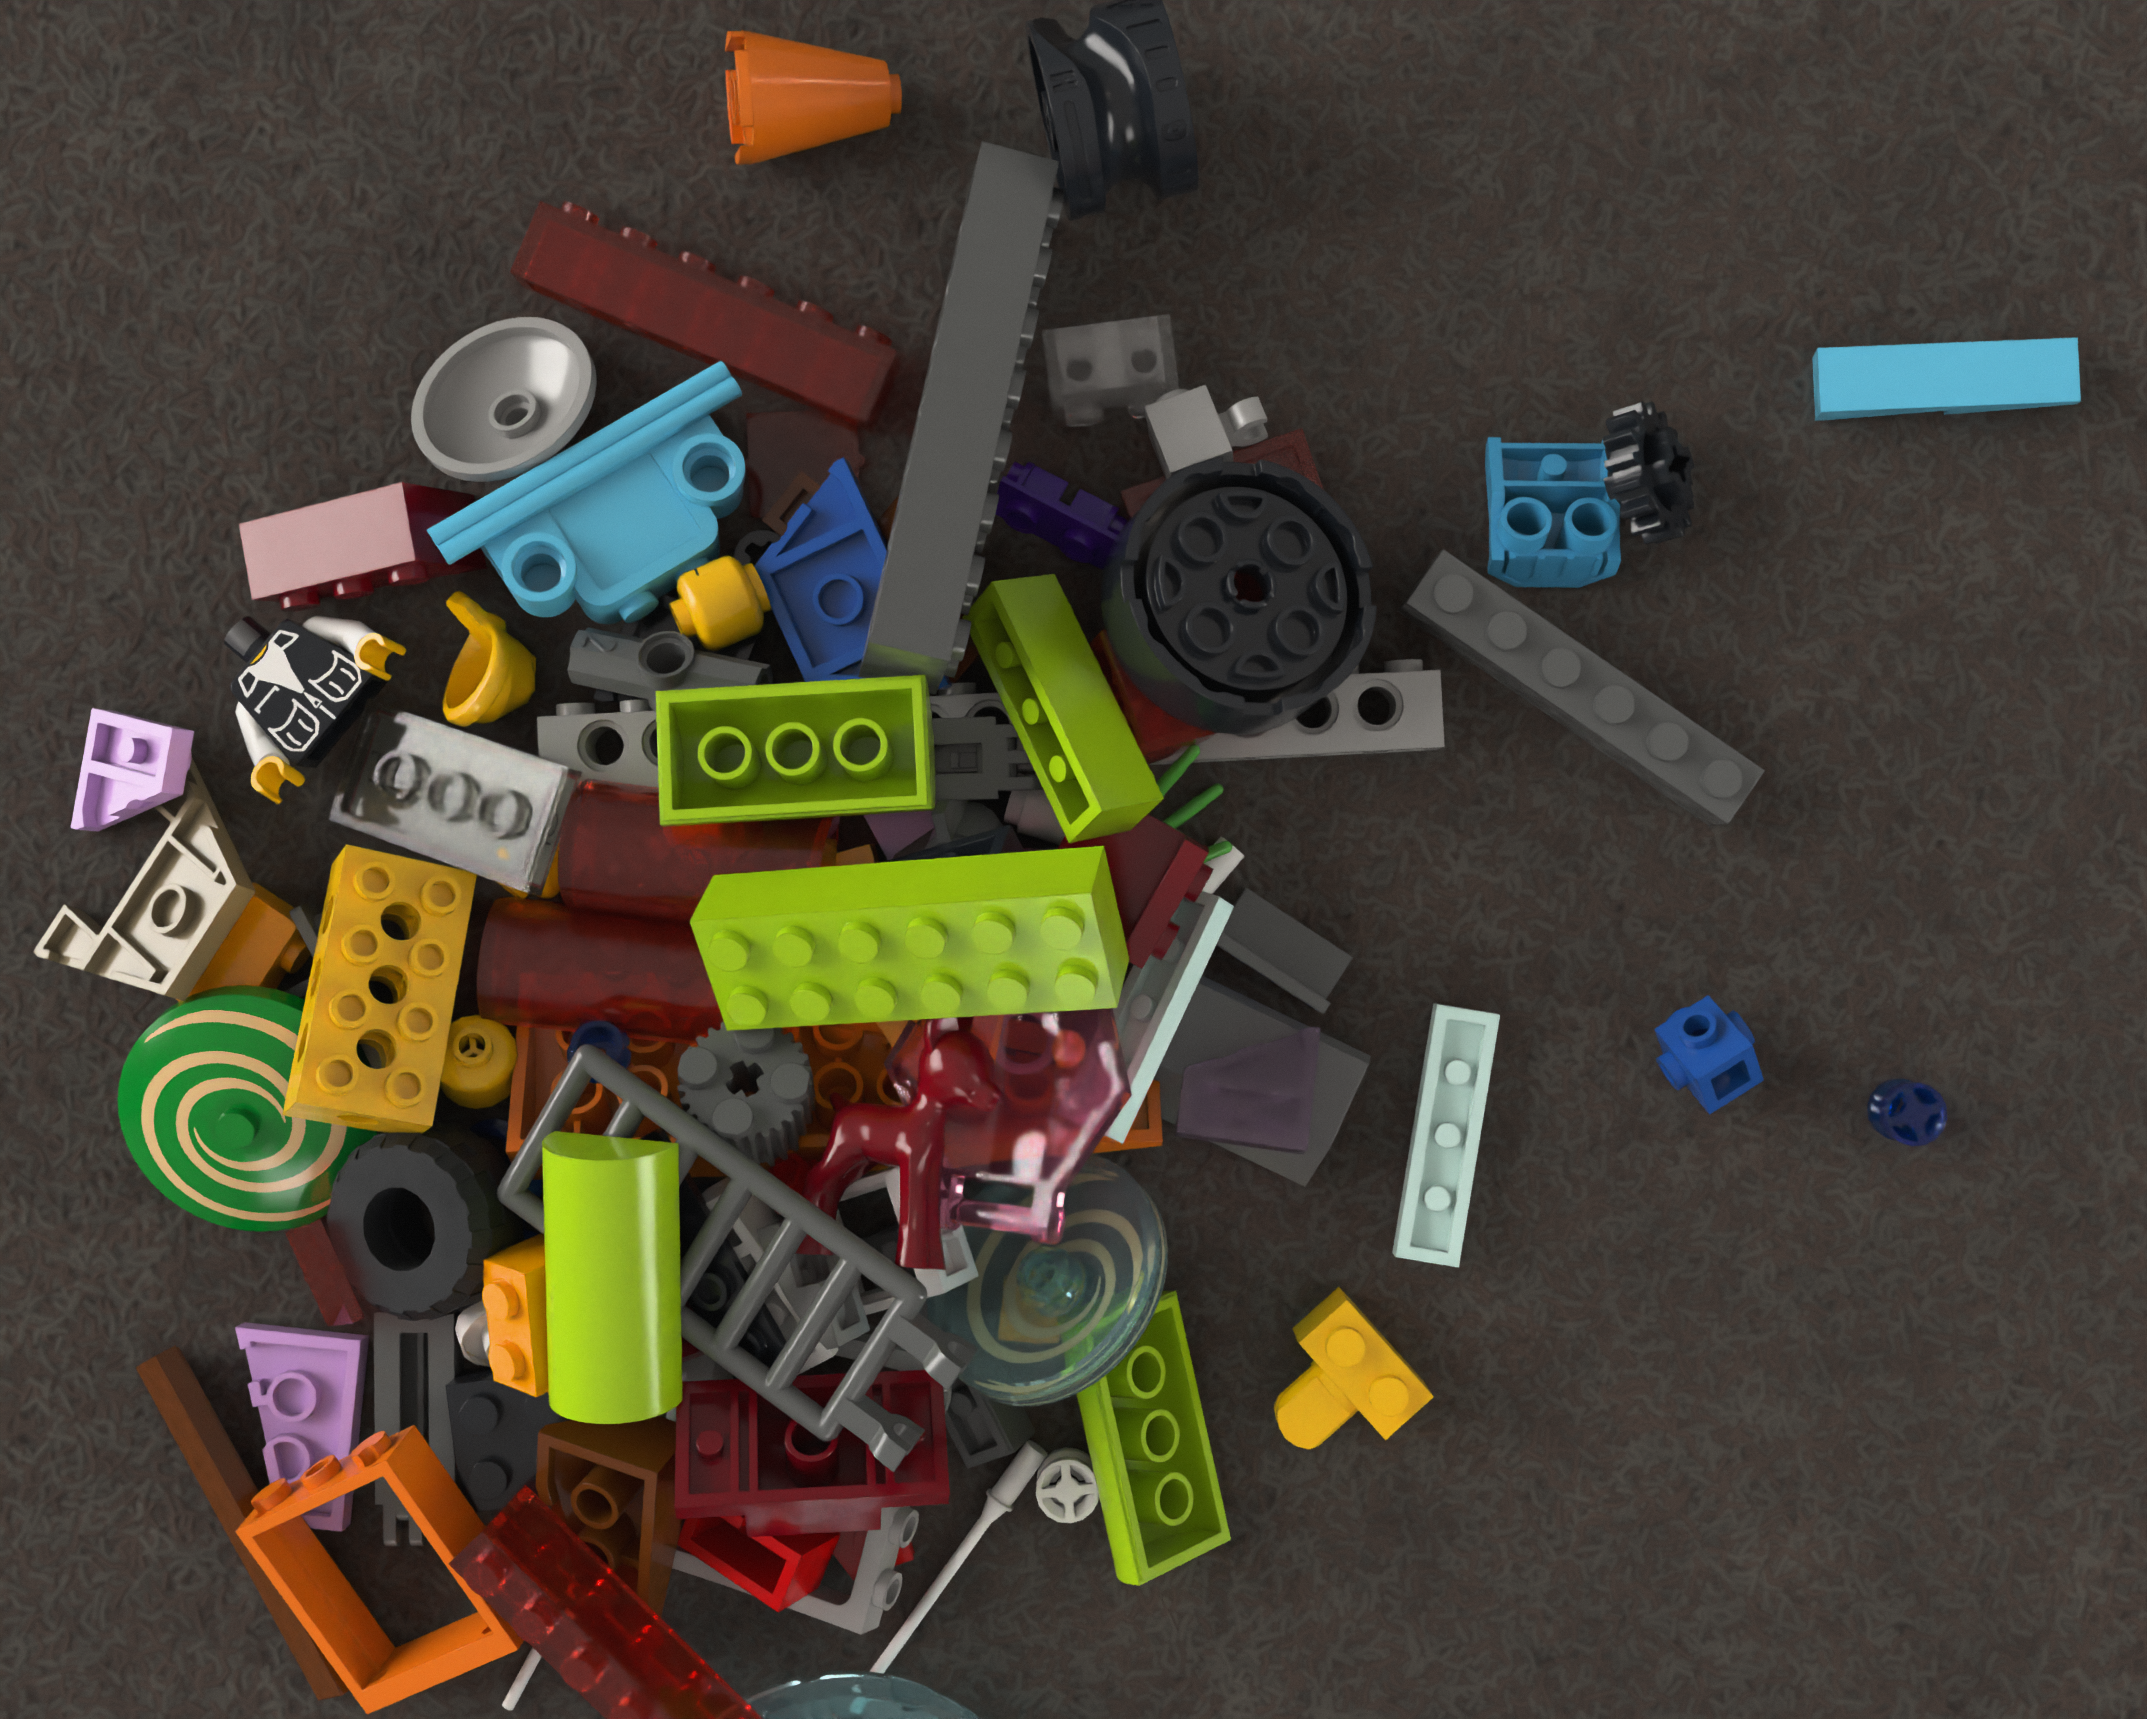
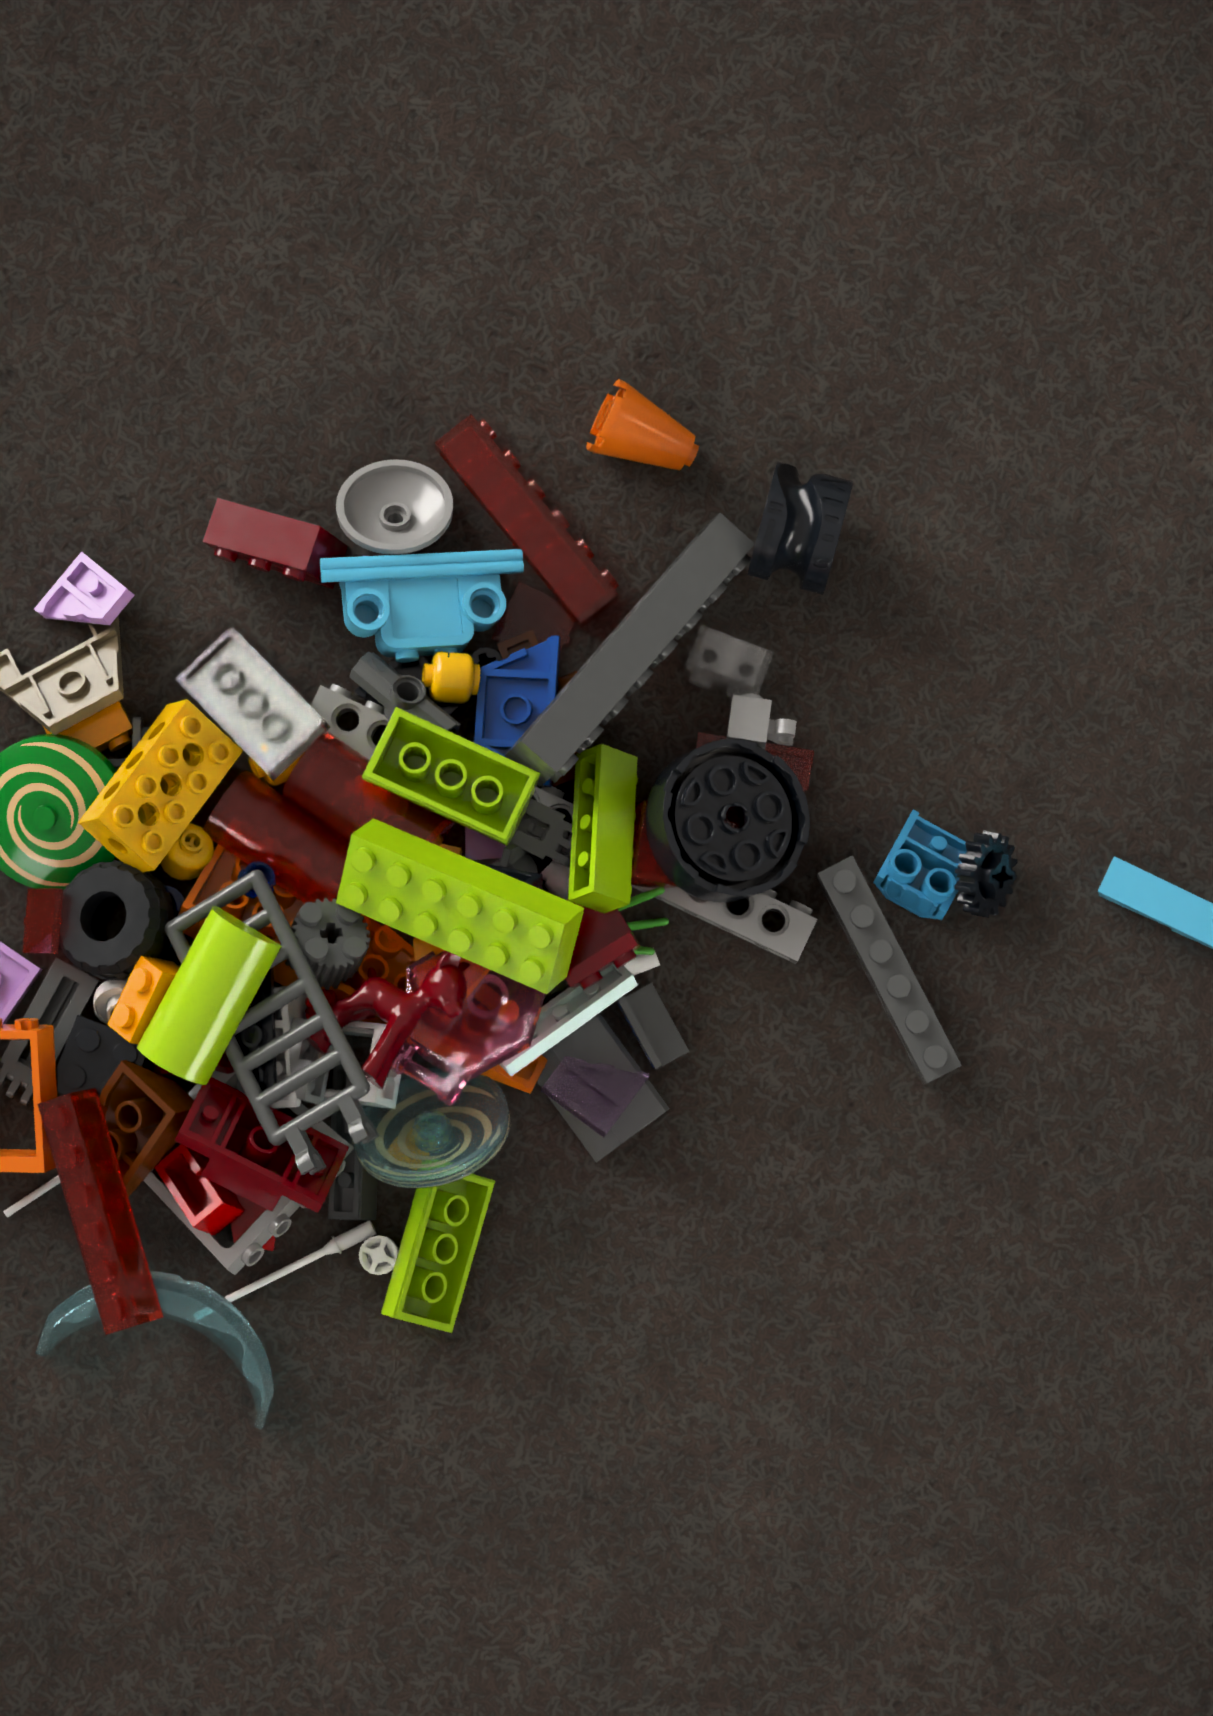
camera: 30 degrees right, 5 degrees down
(302, 690) = (202, 602): torso -> none
(491, 670) = (306, 646): yellow hat -> none
(1032, 505) = (647, 712): dark purple hinge -> none
(1349, 1374) = (565, 1275): yellow brick -> none
(1446, 1135) = (688, 1174): light aqua plate -> none
(1708, 1053) = (852, 1205): blue brick -> none
(1922, 1112) = (953, 1298): clear blue wheel -> none

